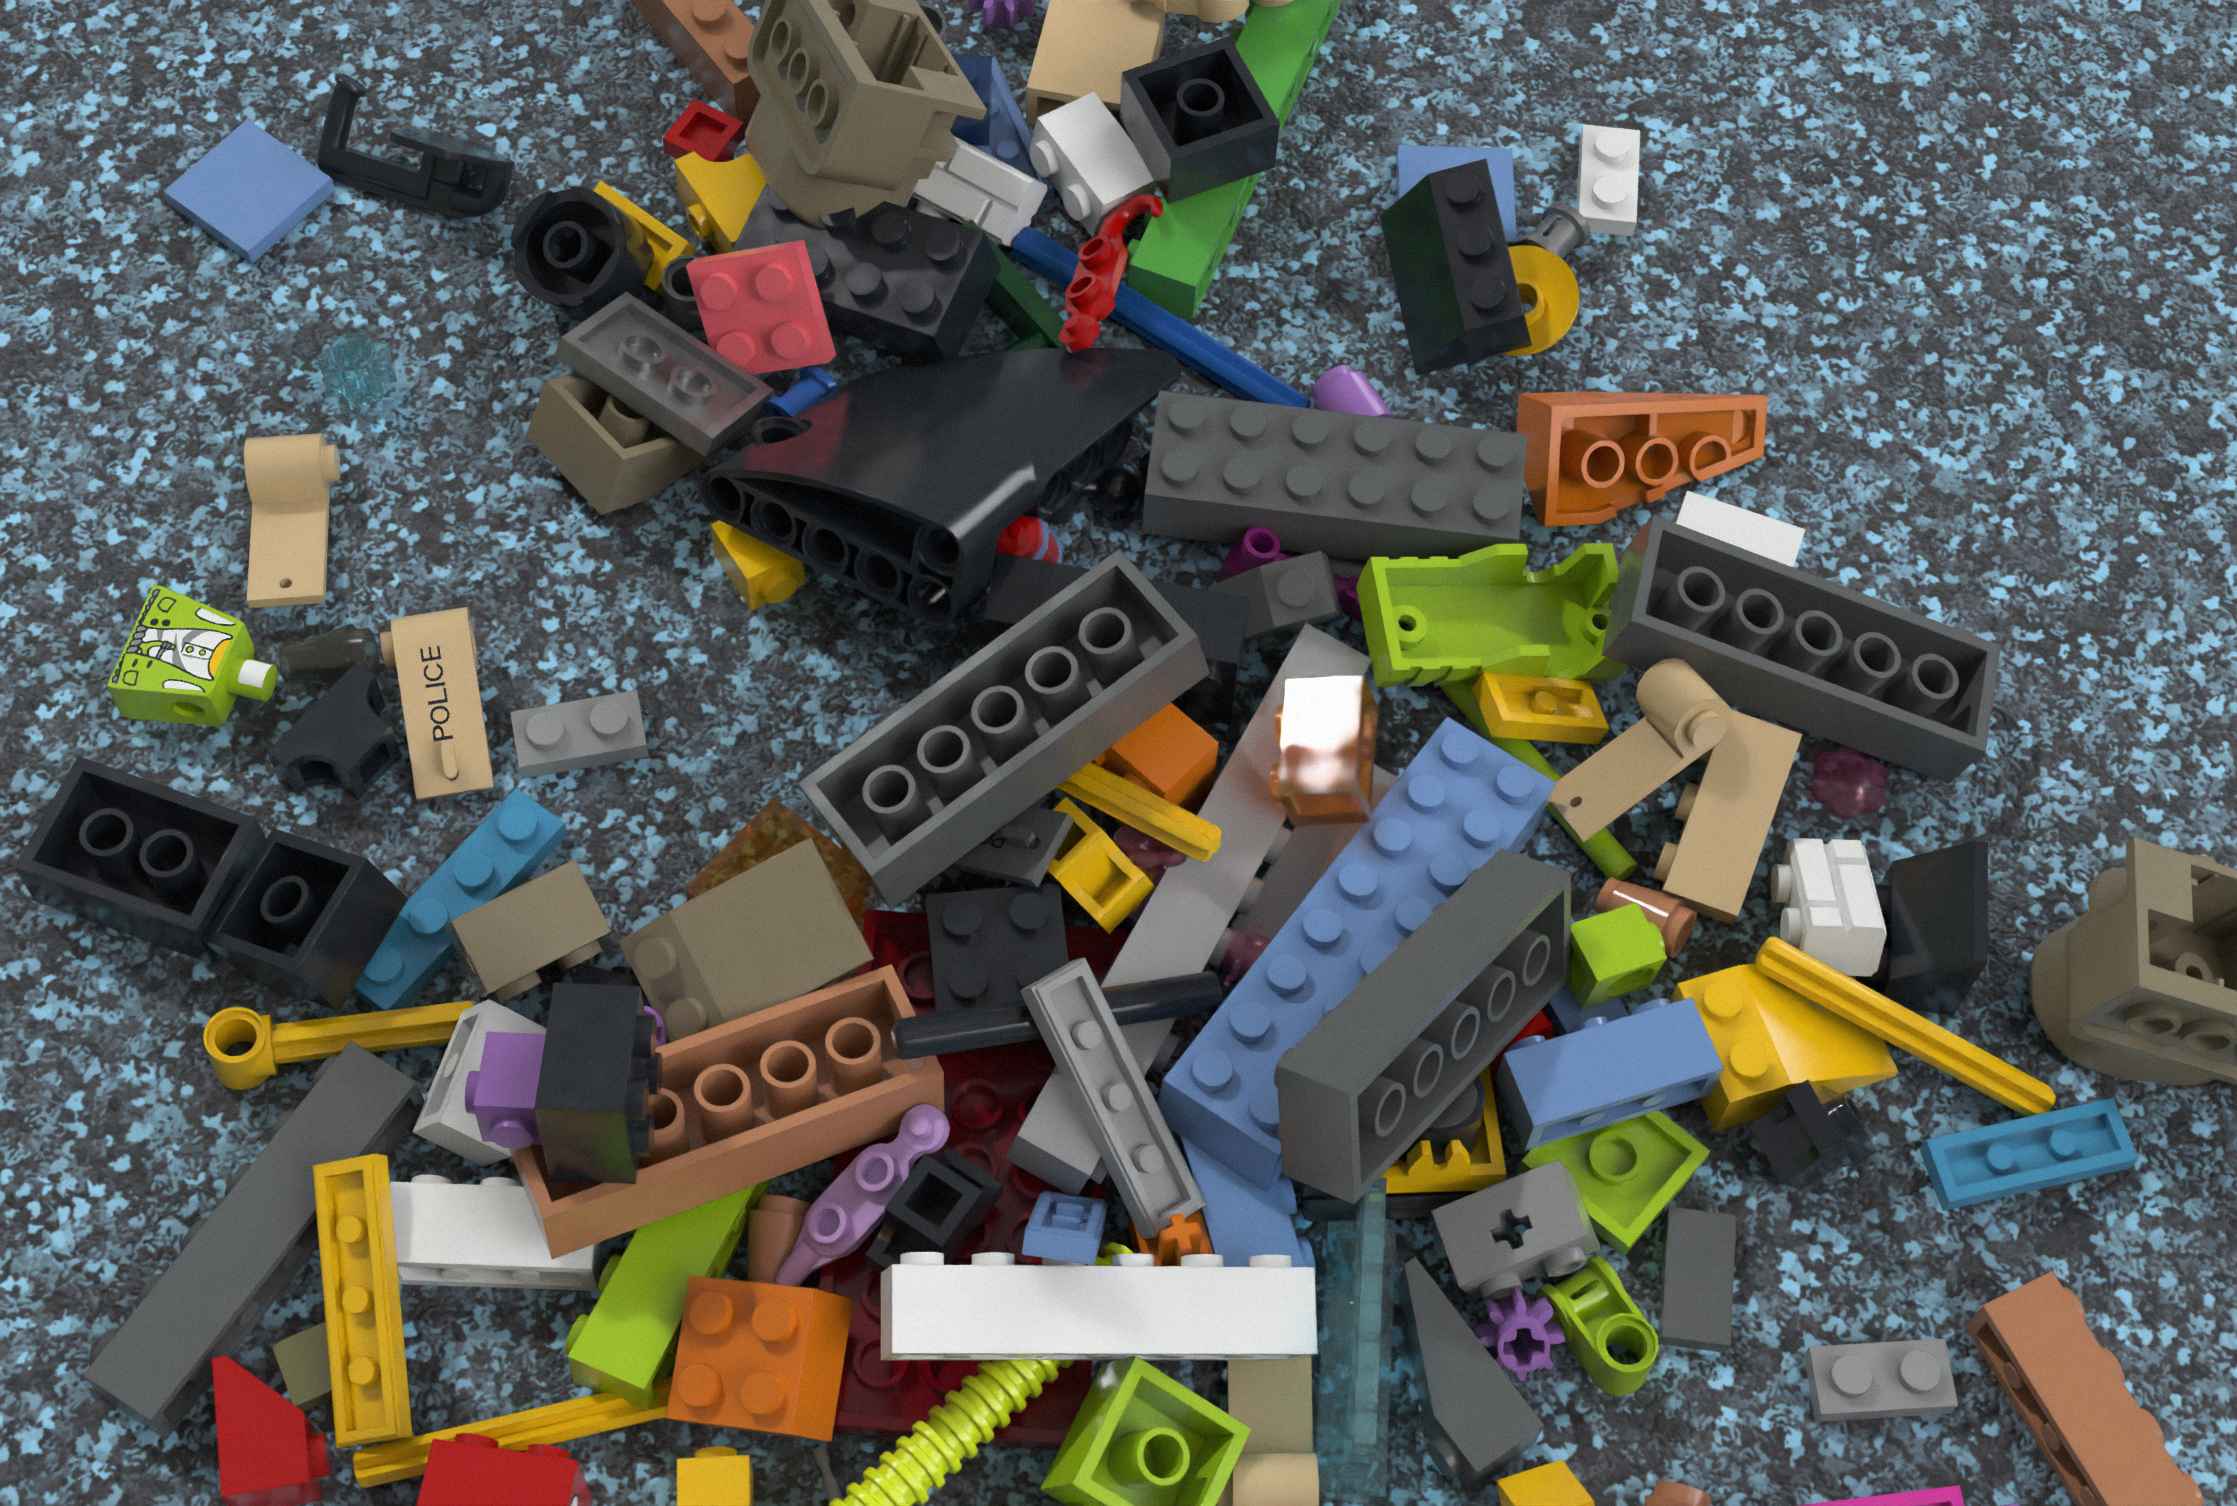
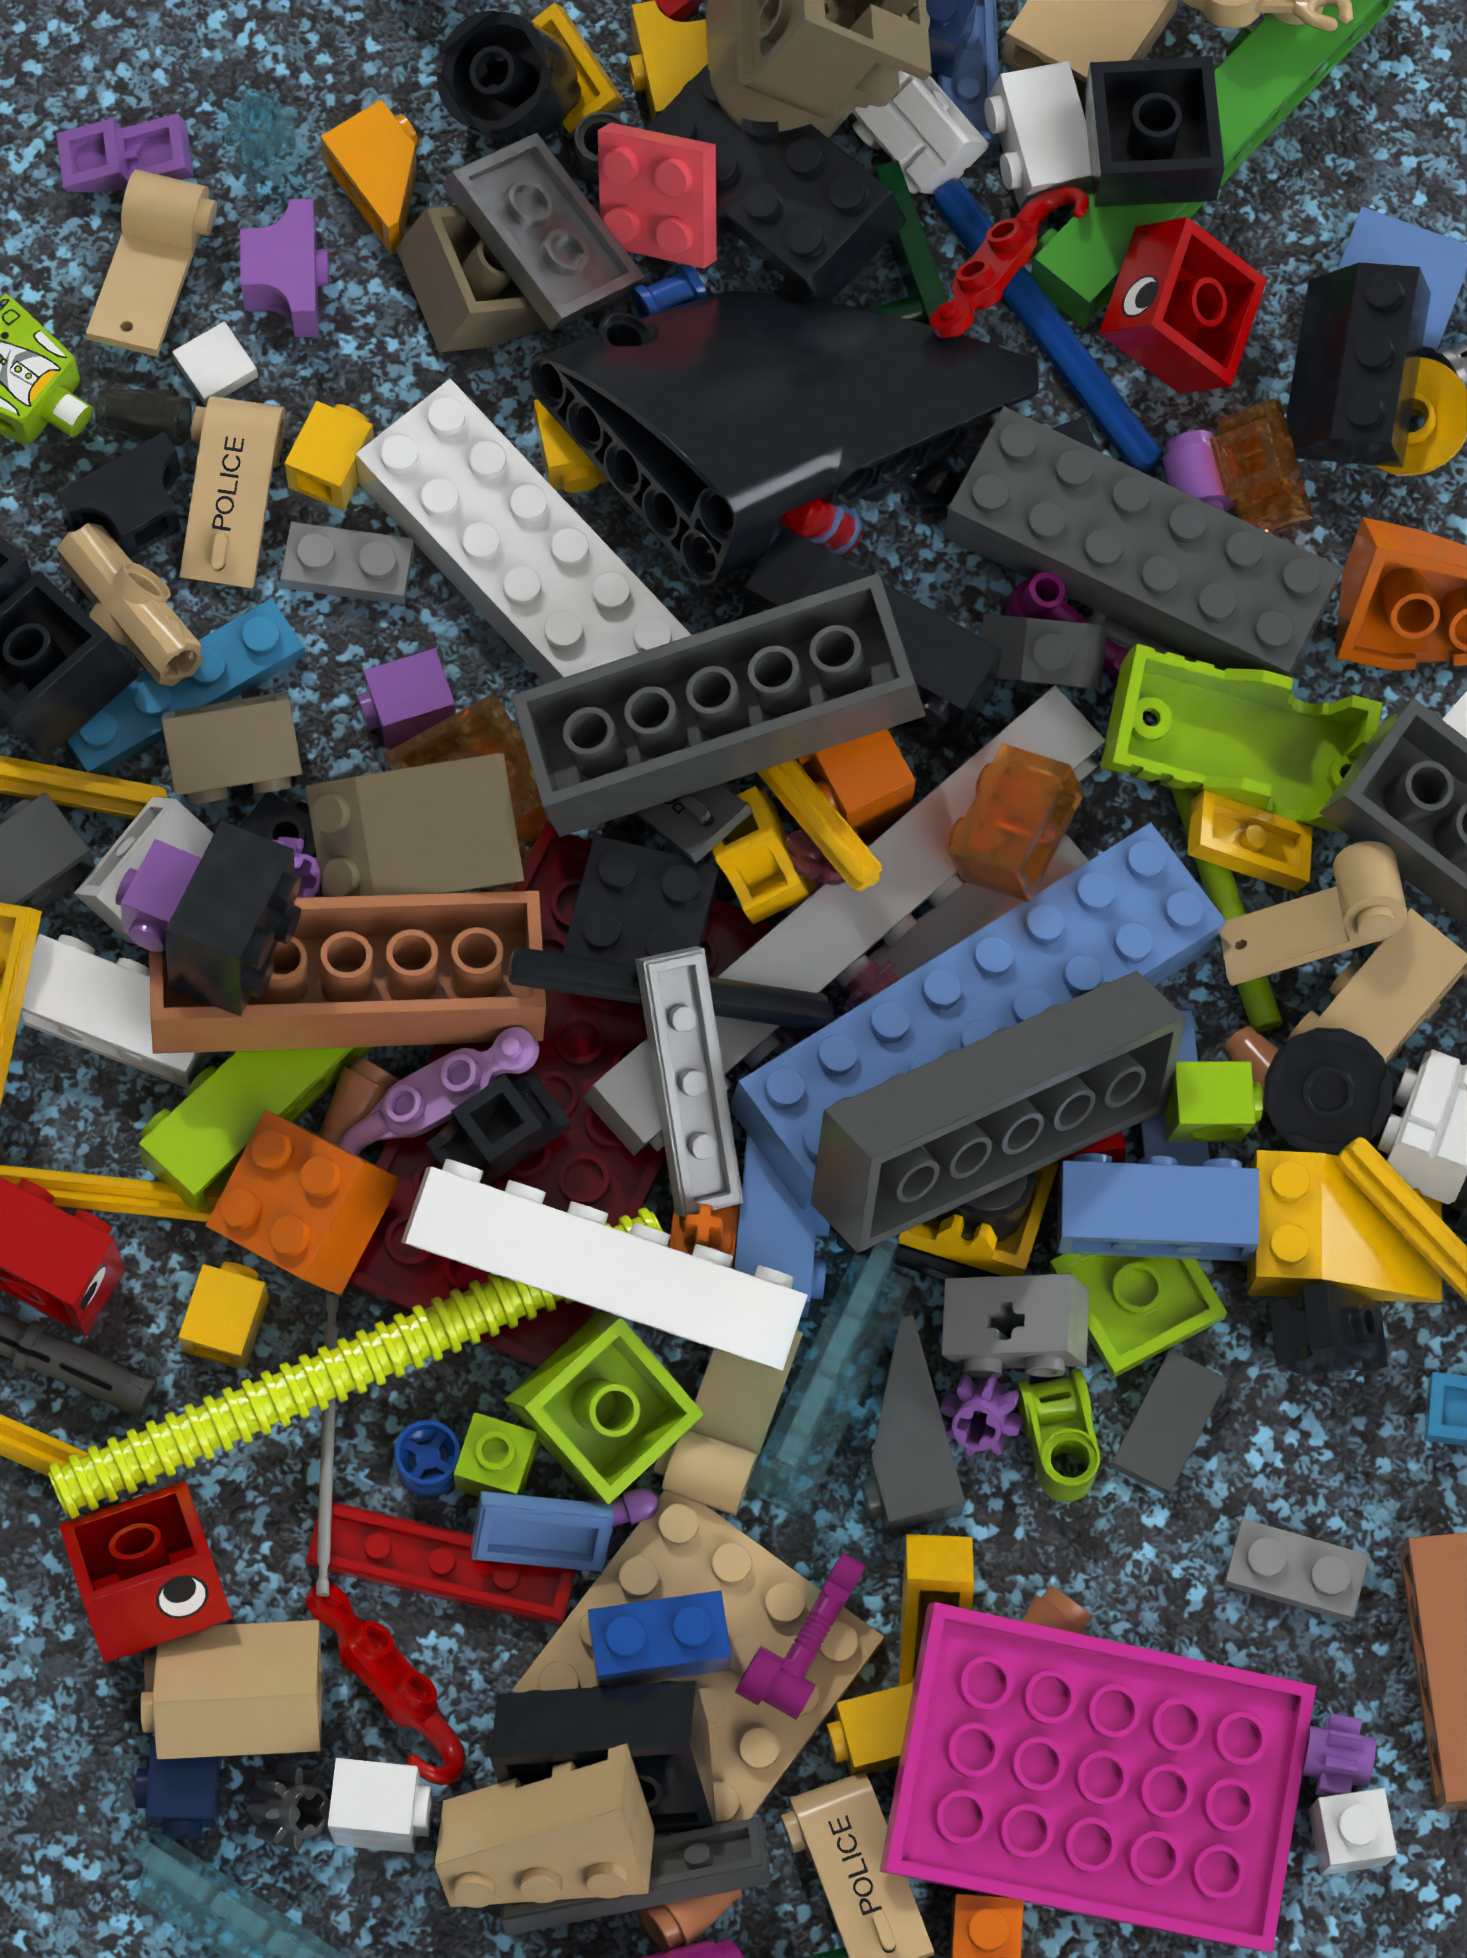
camera: 20 degrees right, 10 degrees up
(213, 441) = (105, 155): none -> medium lavender slope
(378, 831) = (130, 604): none -> tan piece
(384, 592) = (215, 363): none -> white tile
(425, 486) = (285, 268): none -> medium lavender brick
(479, 373) = (375, 167): none -> light orange slope
(528, 638) = (324, 454): none -> yellow brick
(683, 835) = (406, 697): none -> medium lavender brick
(728, 657) = (510, 540): none -> white brick
(1065, 1227) = (603, 1183): medium blue tile -> none
(1282, 263) = (1183, 305): none -> red brick
(1407, 378) = (1261, 467): none -> clear orange brick
(1717, 905) = (1327, 1090): none -> black tile

